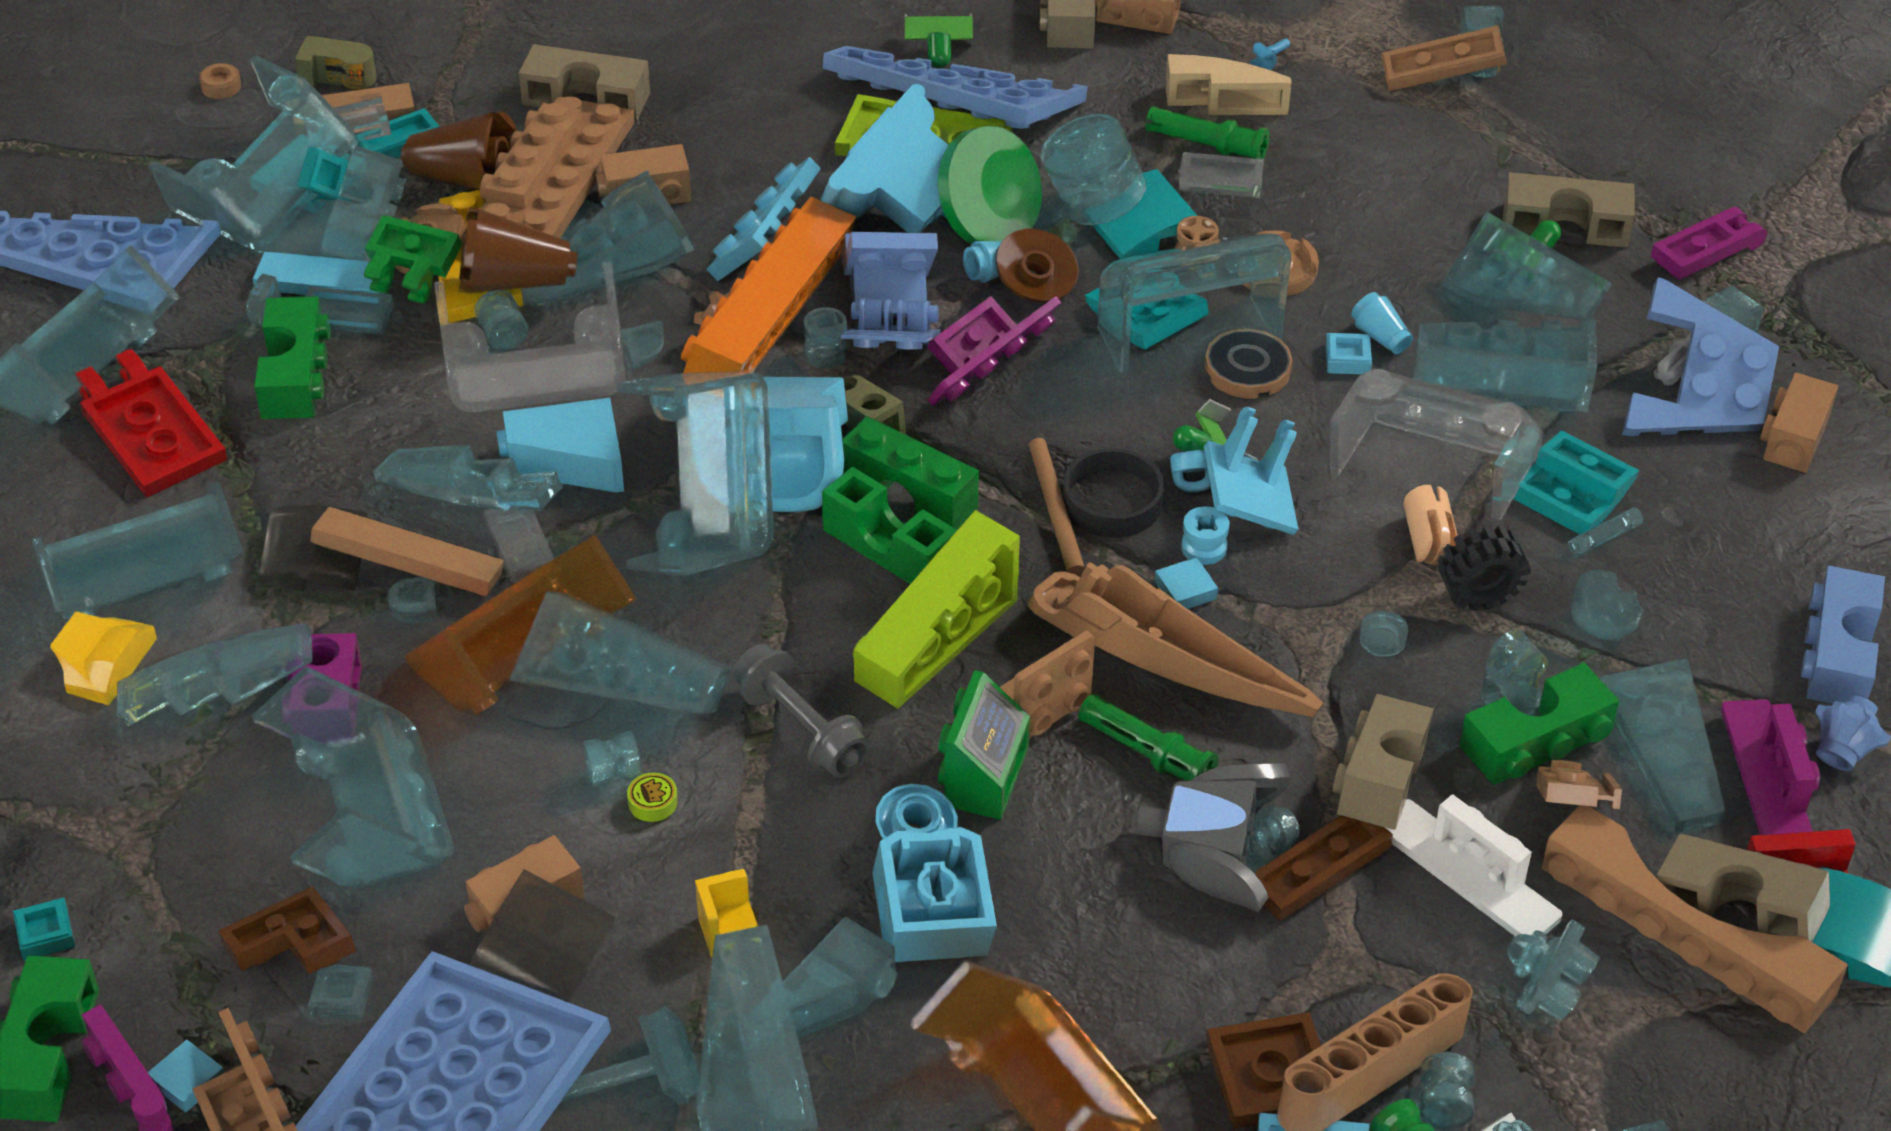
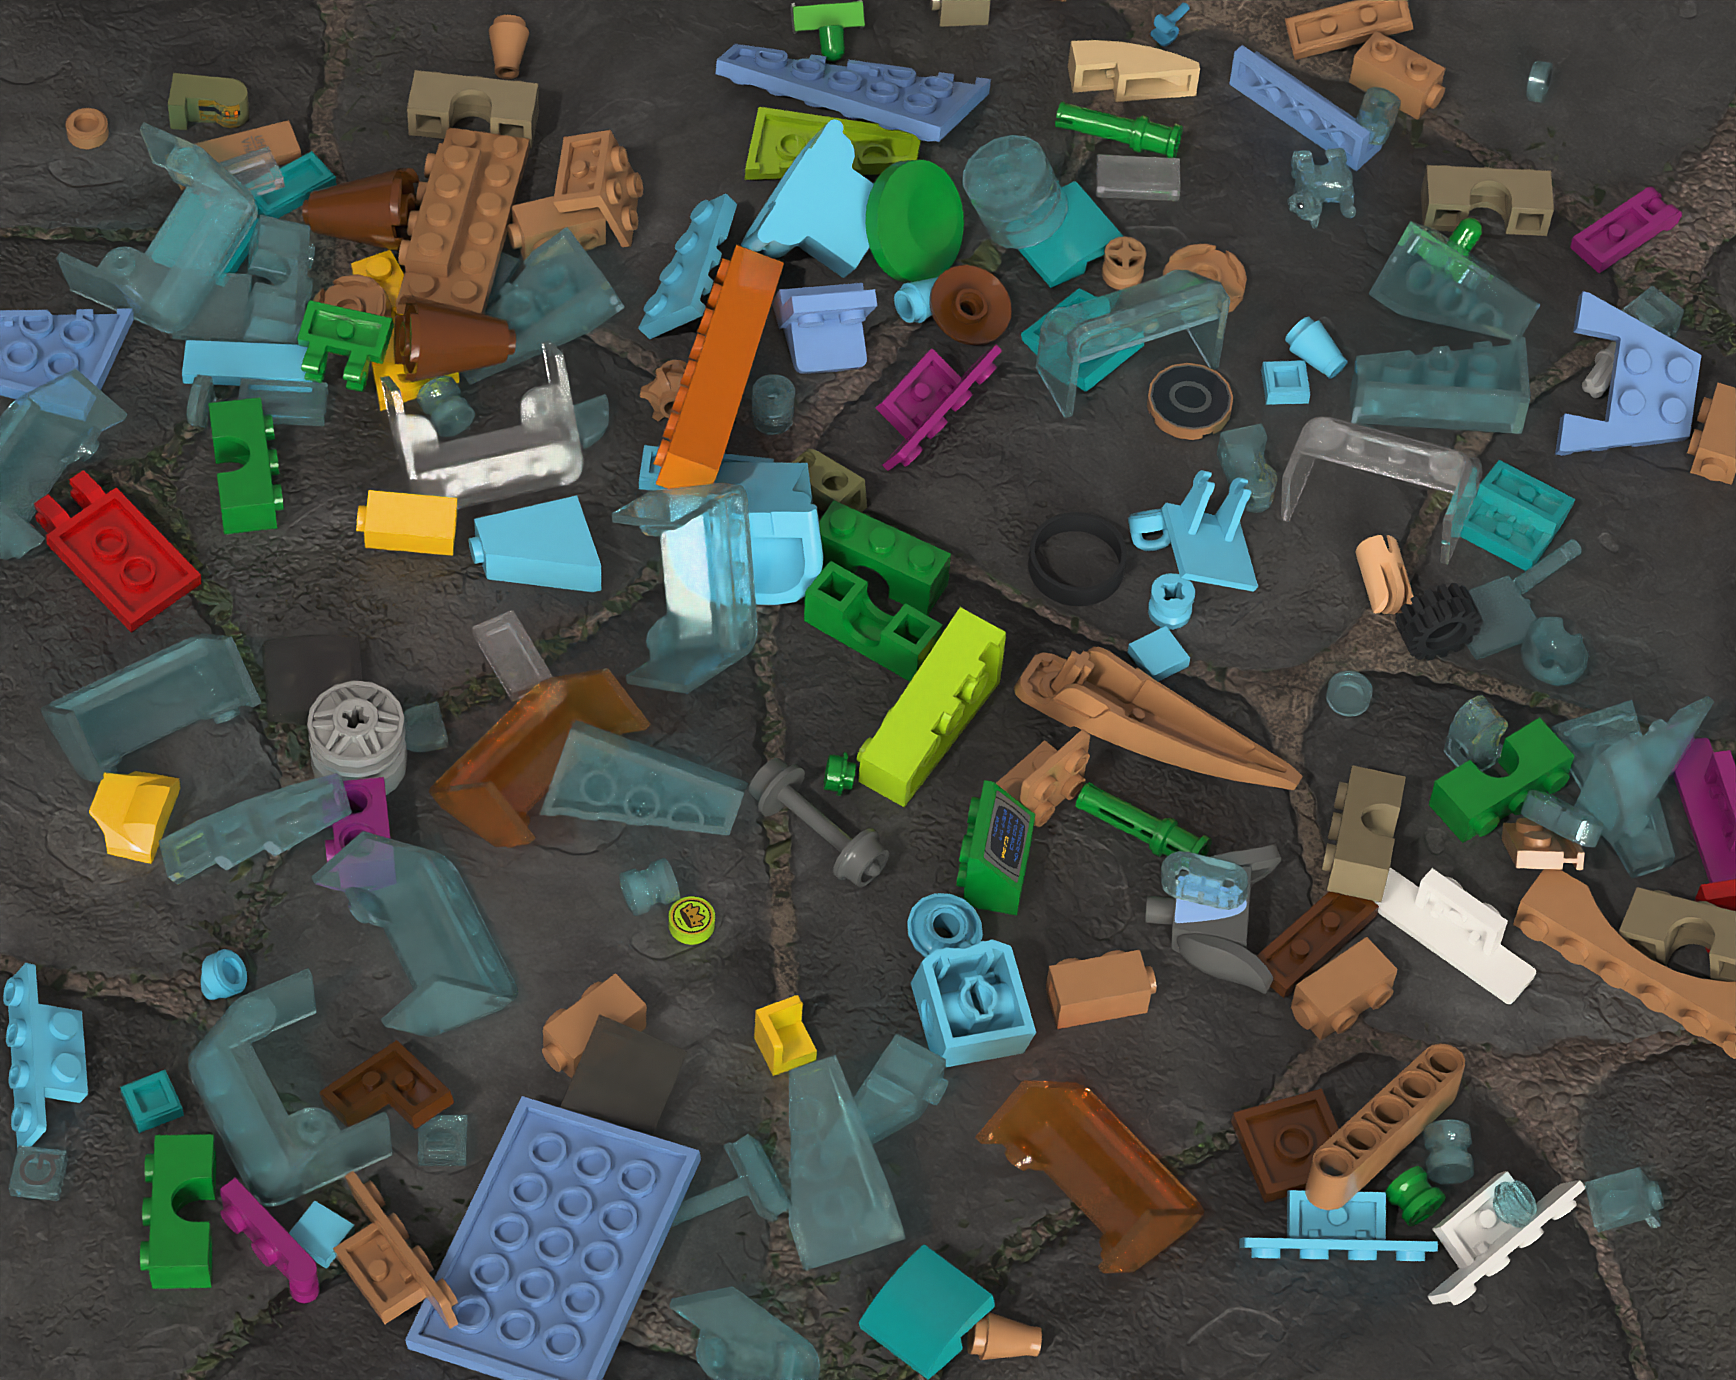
camera: 10 degrees left, 10 degrees up
(148, 810) = (223, 975): none -> medium azure tile
(177, 983) = (275, 1151): none -> clear light blue windscreen
(323, 173) = (232, 248): teal tile -> none
(340, 589) = (358, 734): none -> light grey wheel
(407, 551) = (411, 679): medium nougat tile -> none
(439, 413) = (408, 522): none -> yellow brick
(458, 478) = (439, 592): clear light blue slope -> none
(630, 32) = (508, 43): none -> medium nougat cone
(690, 129) = (598, 174): none -> medium nougat bracket
(832, 669) = (839, 773): none -> green plate
(872, 331) = (819, 398): medium blue hinge -> none
(1056, 507) = (1024, 578): medium nougat bar -> none
(1077, 893) = (1099, 988): none -> medium nougat brick
(1190, 438) = (1152, 497): piece -> none
(1201, 789) = (1204, 880): none -> clear light blue beam
(1276, 829) = (1271, 908): clear light blue plate -> none
(1301, 404) = (1241, 456): none -> clear light blue leg
(1345, 914) = (1344, 989): none -> medium nougat brick
(1392, 126) = (1300, 106): none -> medium blue fence
(1402, 187) = (1321, 184): none -> clear light blue animal
(1463, 134) = (1378, 113): none -> clear light blue beam
(1488, 103) = (1400, 70): none -> medium nougat brick
(1546, 964) = (1523, 1022): clear light blue hips -> none
(1552, 575) = (1504, 617): none -> clear light blue piece
(1601, 760) = (1562, 818): none -> clear light blue beam
(1629, 116) = (1539, 81): none -> clear light blue tile
(1686, 715) = (1637, 769): none -> clear light blue wedge

